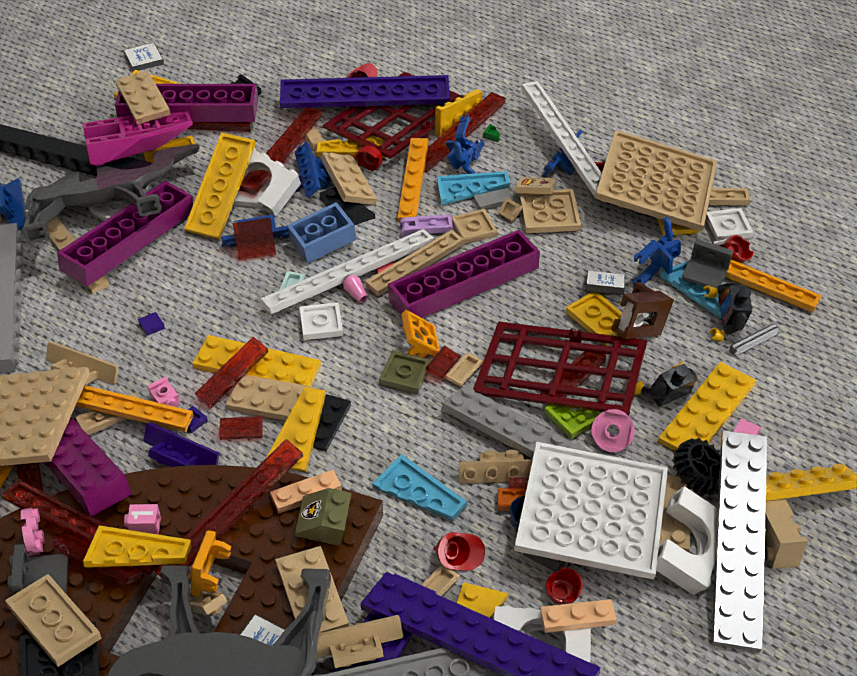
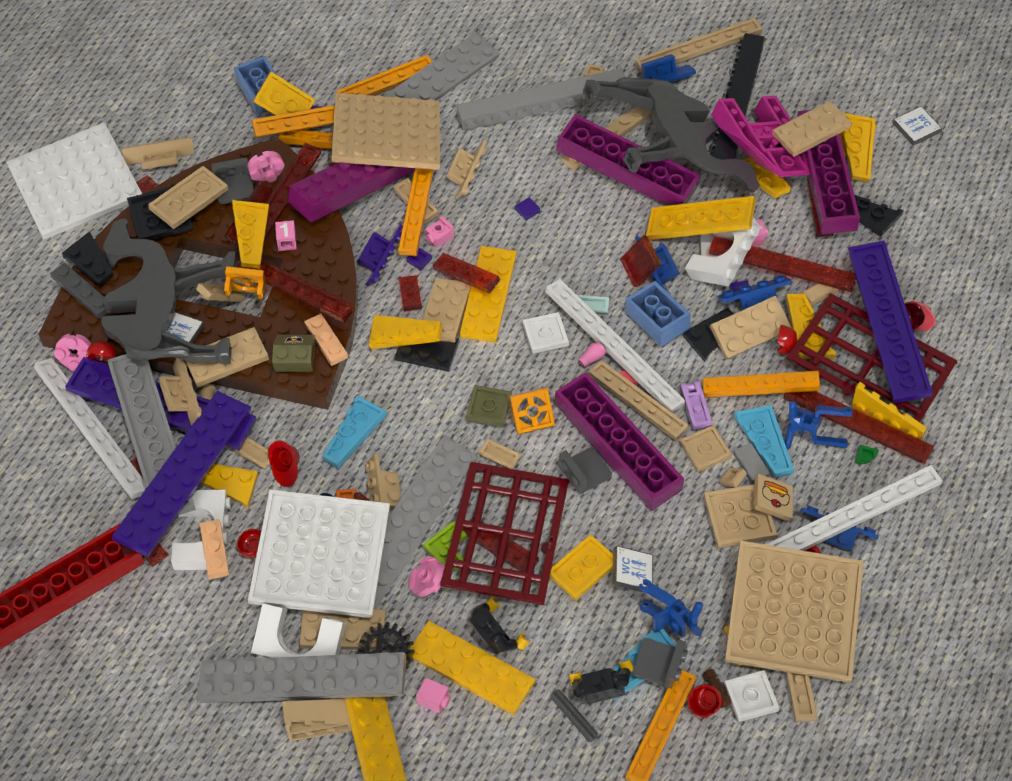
camera: 85 degrees right, 10 degrees up
(442, 362) = (502, 434): clear red tile -> none
(492, 307) = (584, 469): none -> dark grey bracket
(643, 313) = (573, 595): reddish brown brick -> none

